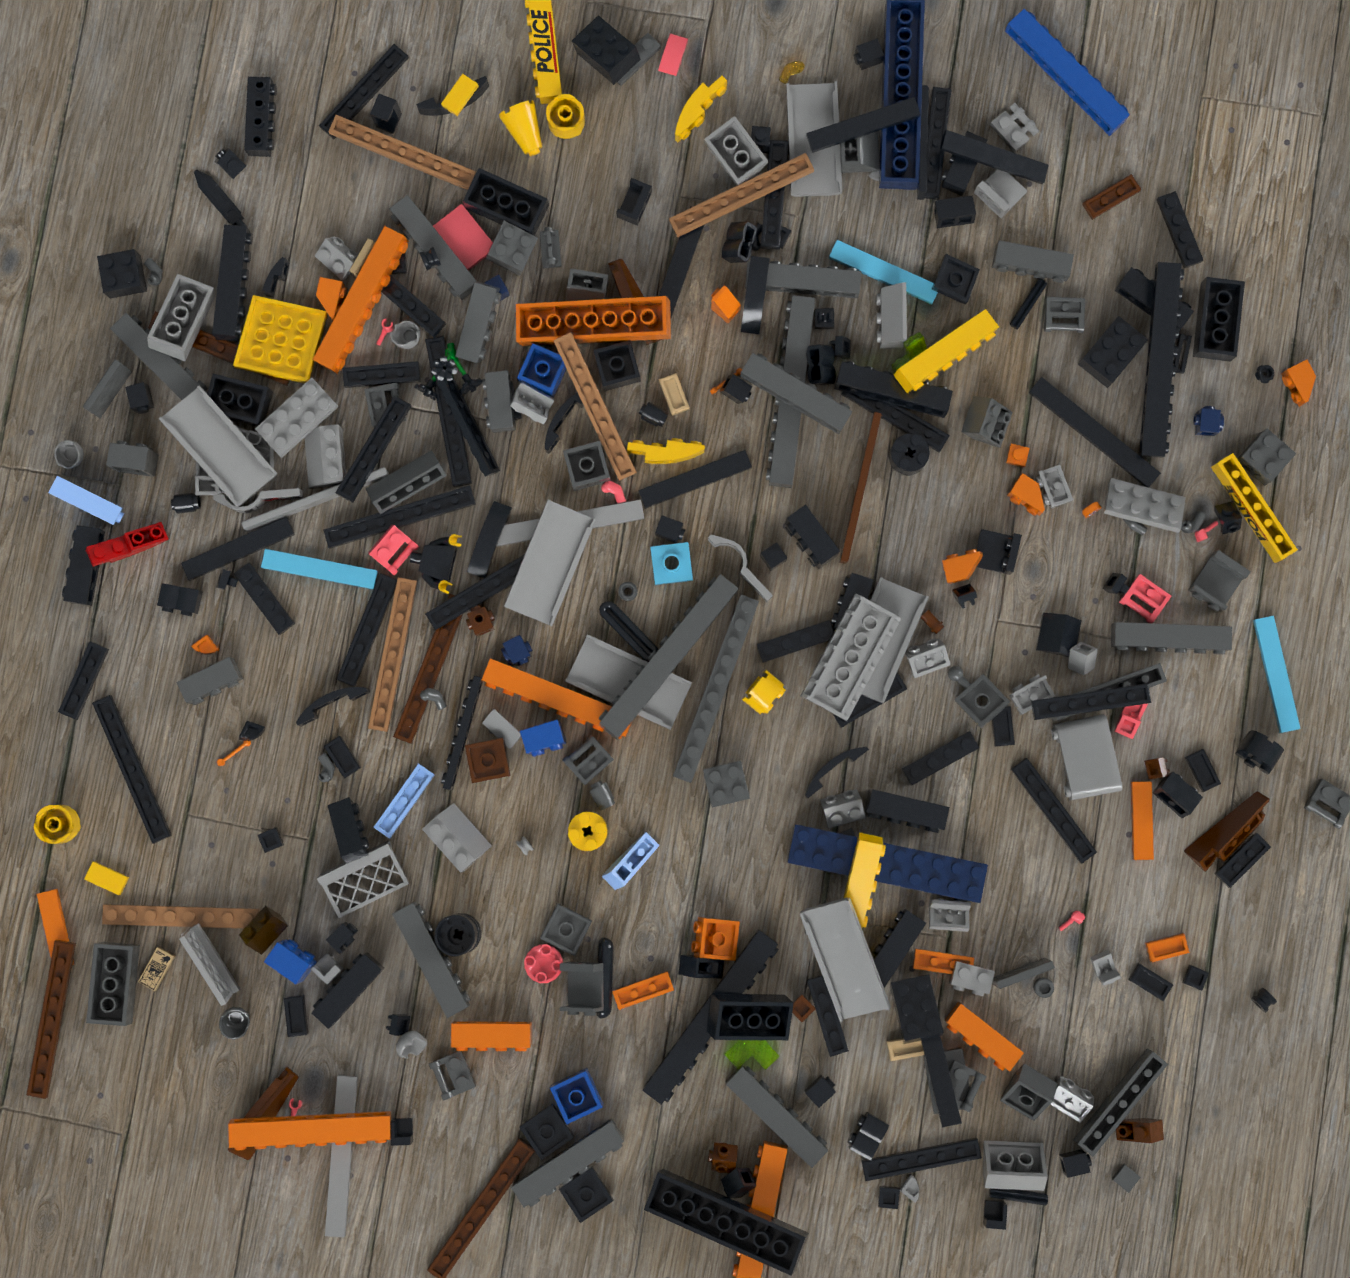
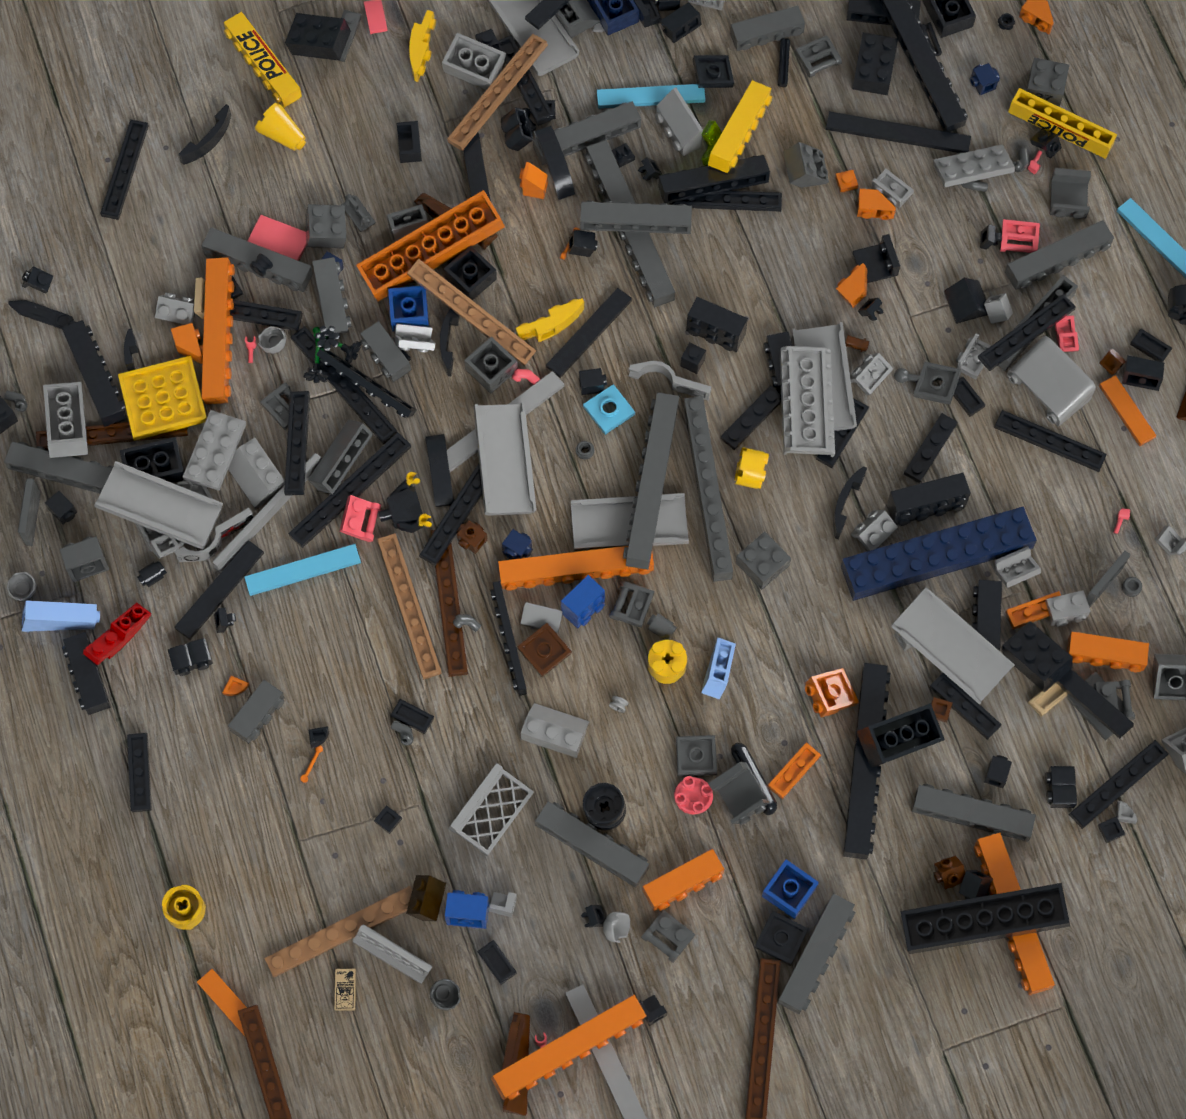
camera: 35 degrees left, 15 degrees down
(106, 878) = (254, 934): yellow tile -> none
(113, 983) = (313, 1020): dark grey brick -> none
(132, 769) = (226, 827): black tile -> none
(259, 116) = (44, 230): black brick -> none
(264, 598) = (267, 619): black plate -> none
(310, 714) = (392, 655): black slope -> none
(342, 937) = (501, 867): black brick -> none
(347, 991) = (532, 909): black brick -> none
(348, 830) = (455, 769): black brick -> none
(367, 630) = (374, 598): black tile -> none
(381, 374) = (267, 383): black plate -> none
(386, 113) = (156, 173): black panel -> none
(402, 152) = (186, 198): medium nougat plate -> none
(404, 801) = (489, 723): light blue plate -> none
(459, 94) = (213, 128): yellow tile -> none
(505, 201) = (292, 192): black brick -> none
(565, 127) = (312, 103): yellow brick -> none
(586, 1194) = (848, 973): black plate -> none
(627, 629) = (603, 480): black piece -> none
(653, 414) = (523, 298): black brick -> none
(674, 394) = (531, 275): tan tile -> none
(700, 967) = (832, 723): black slope -> none
(759, 1049) = (919, 766): clear neon green plate -> none
(821, 364) = (642, 188): black brick -> none
(860, 488) = (733, 269): reddish brown tile -> none
(862, 874) = (924, 562): yellow brick -> none
(904, 464) = (757, 222): black brick -> none
(1091, 509) = (933, 191): orange tile -> none

